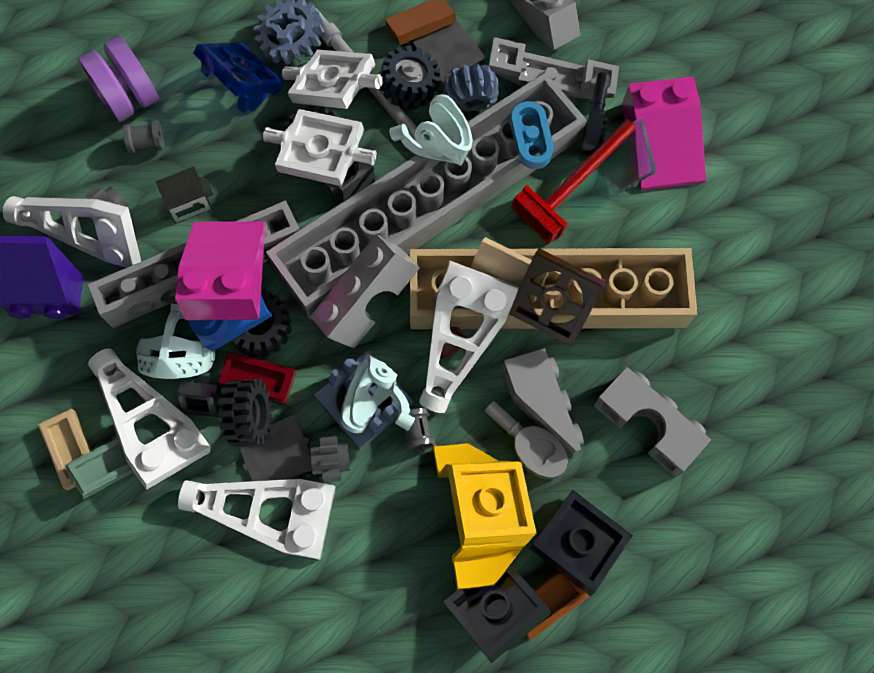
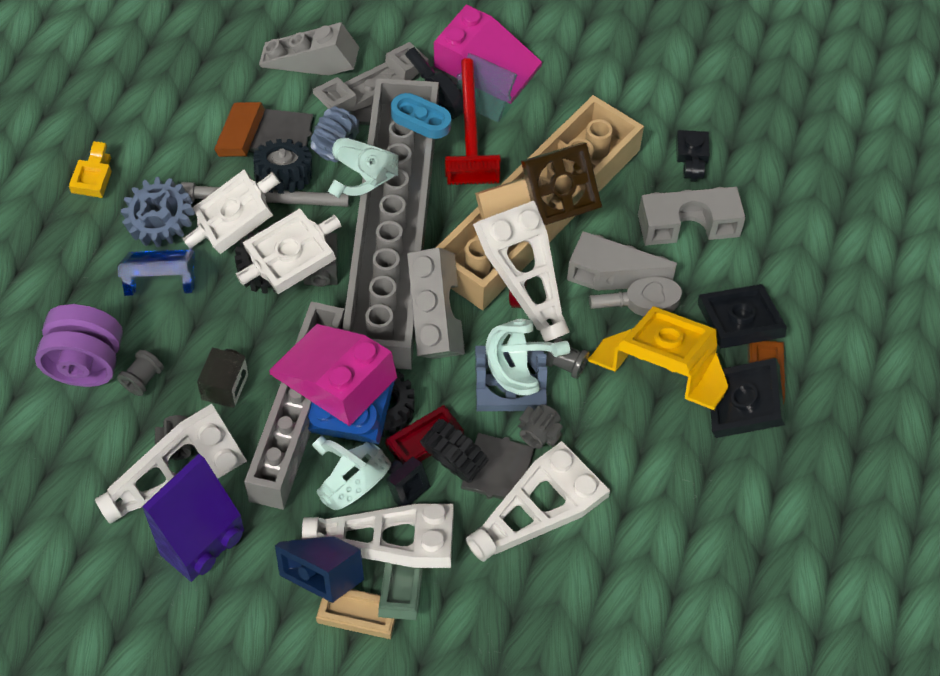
camera: 50 degrees left, 15 degrees down
(75, 396) = (321, 565): none -> dark blue slope
(729, 369) = (694, 152): none -> black plate

